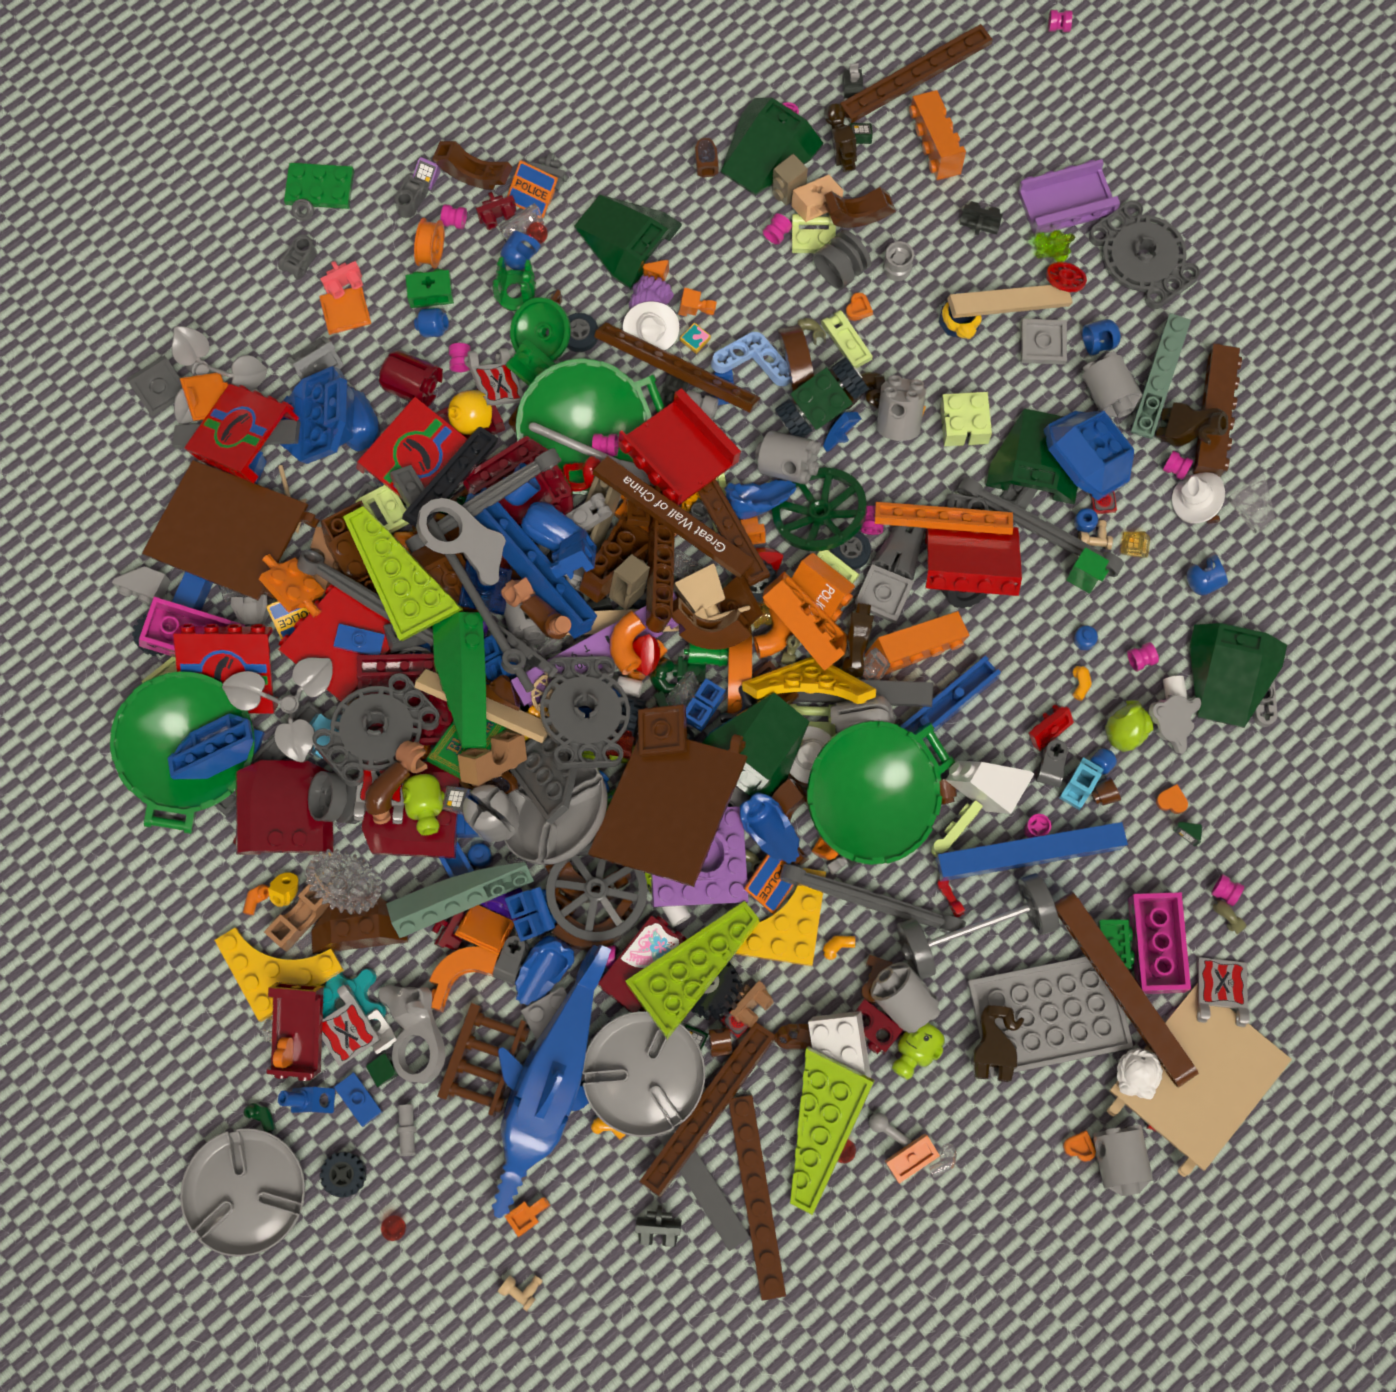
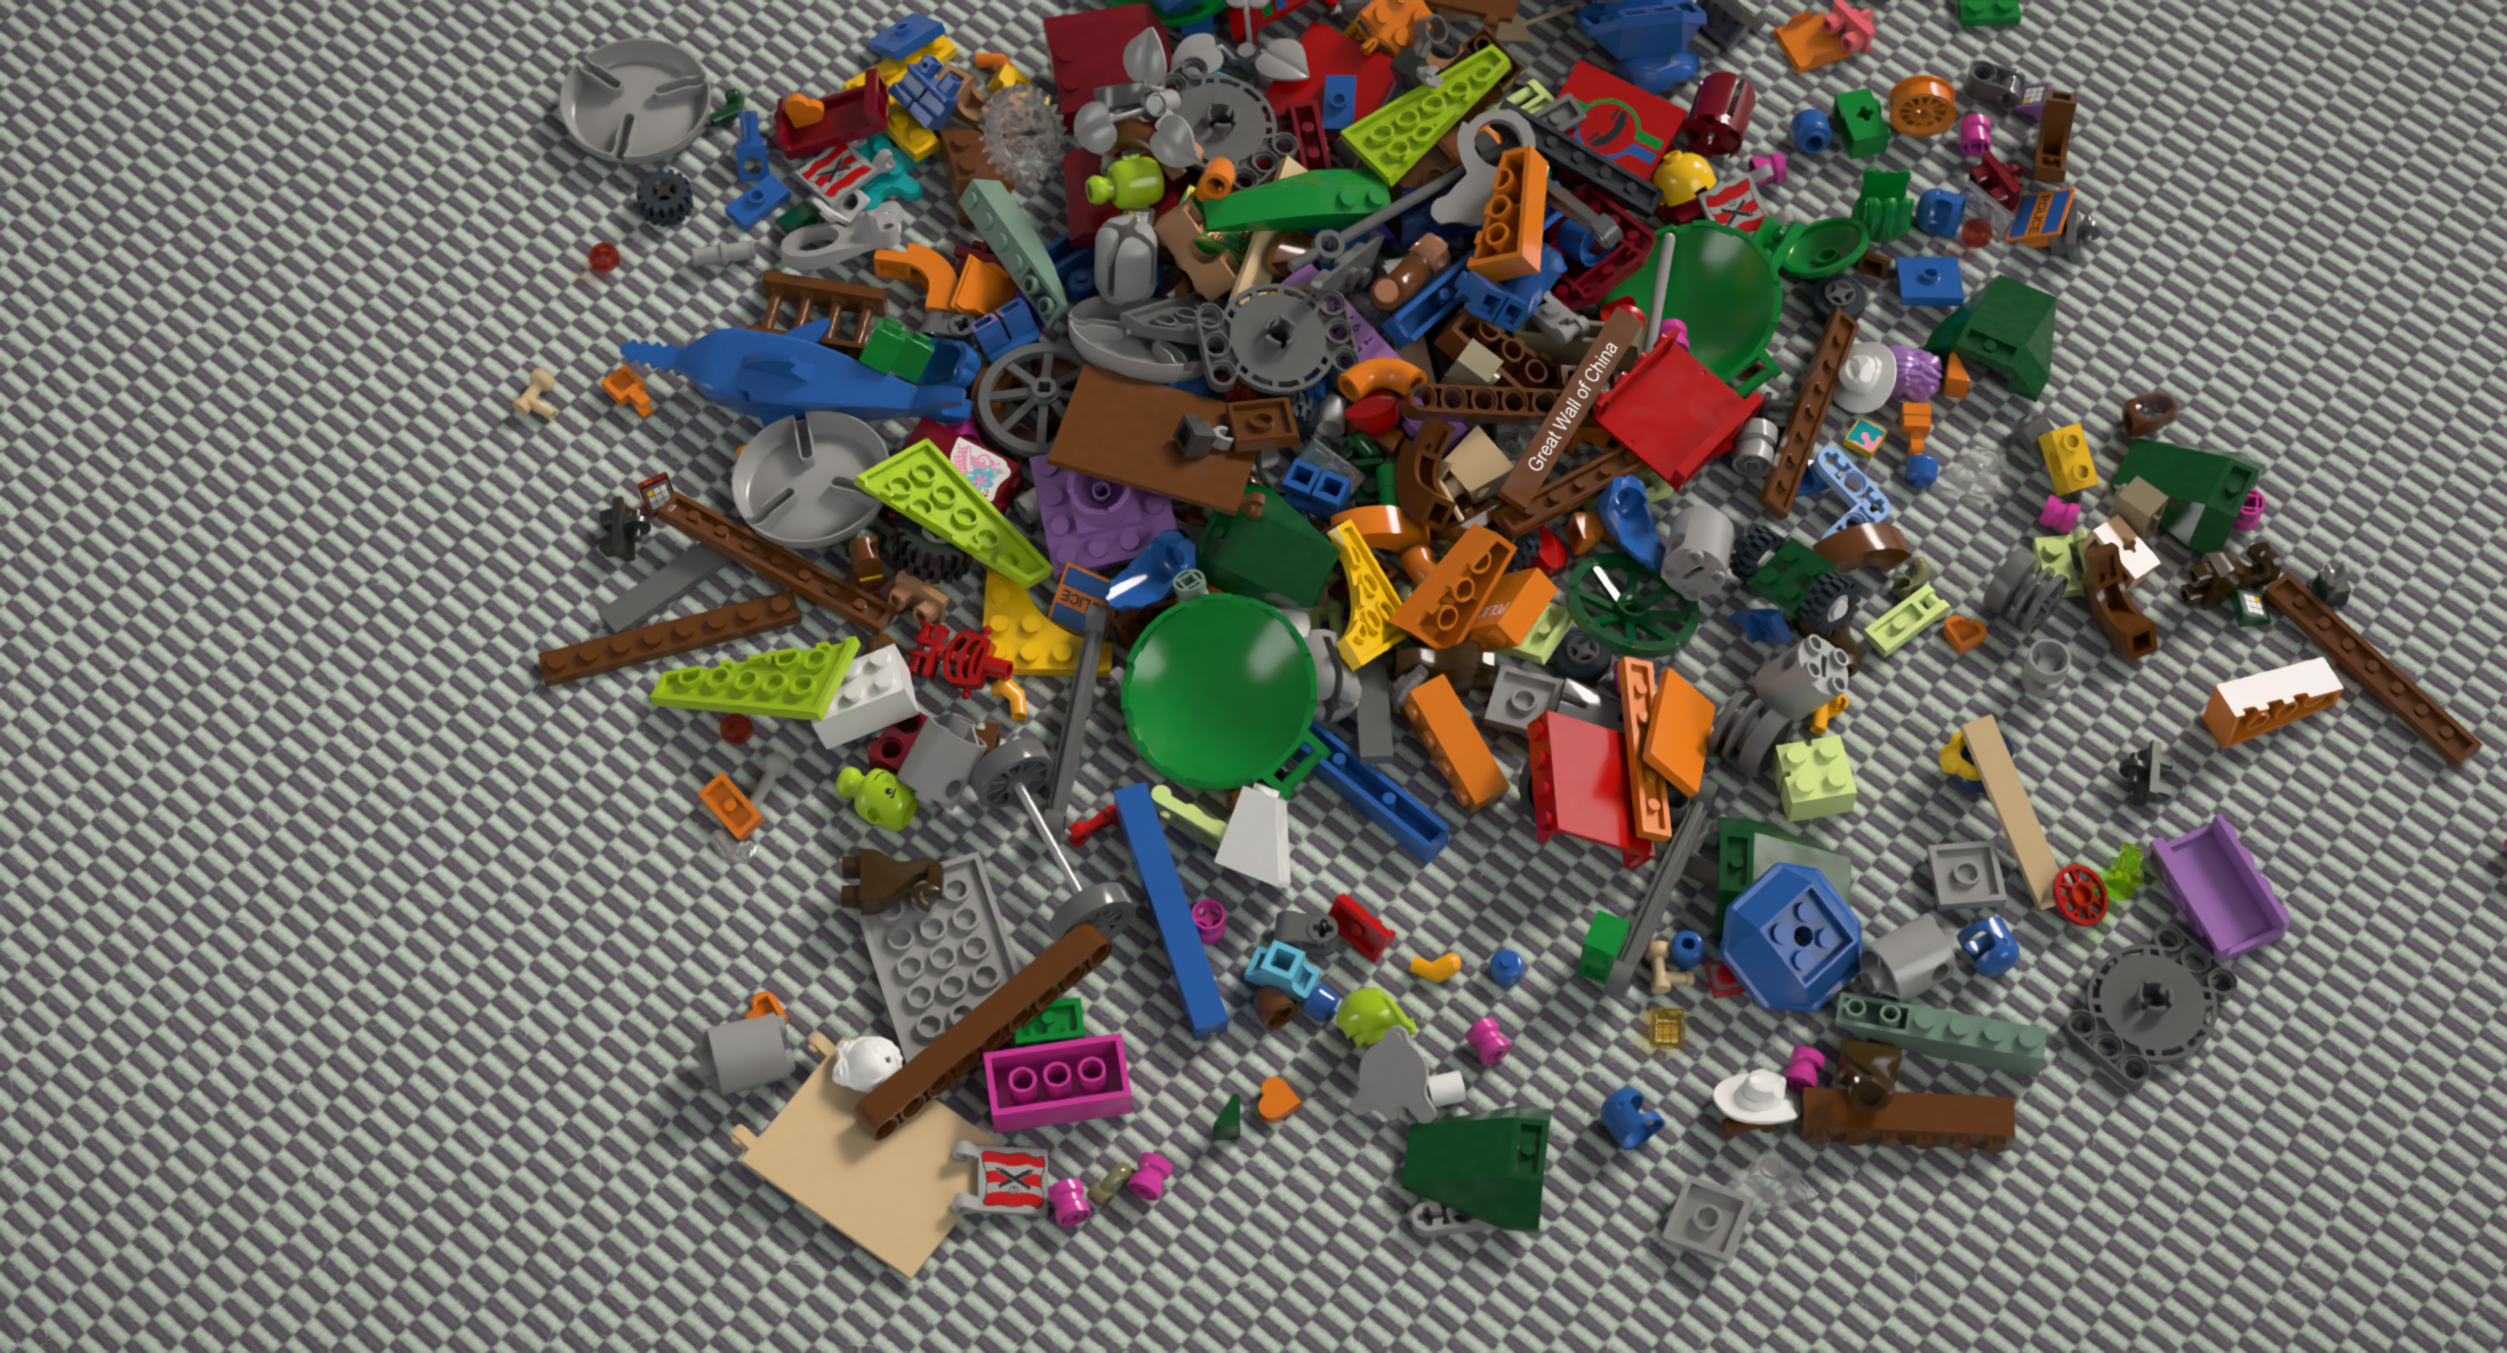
camera: 80 degrees right, 15 degrees down
(219, 966) = (906, 36): none -> blue plate
(298, 942) = (924, 95): none -> blue hips
(345, 763) = (1174, 139): none -> light grey plant
(356, 577) = (1412, 71): none -> pearl dark grey piece
(440, 732) = (1215, 179): none -> orange cylinder
(514, 524) = (1514, 218): none -> orange wedge
(538, 1000) = (896, 350): none -> green brick
(573, 271) = (1929, 281): none -> blue plate
(630, 1197) = (655, 493): none -> slope
(677, 775) = (1197, 436): none -> pearl dark grey piece
(710, 230) = (2028, 430): none -> dark grey bracket
(728, 307) = (1921, 470): none -> blue piece
(737, 276) = (1972, 478): none -> clear wing
(741, 212) = (2068, 460): none -> yellow brick
(796, 801) = (1189, 585): none -> sand green wheel
(817, 958) = (975, 657): none -> red torso
(932, 494) = (1679, 732): none -> orange tile
(934, 450) = (1745, 731): none -> dark grey wheel
(1243, 946) = (1069, 1203): none -> dark pink wheel
(1281, 541) = (1708, 1219): none -> light grey plate

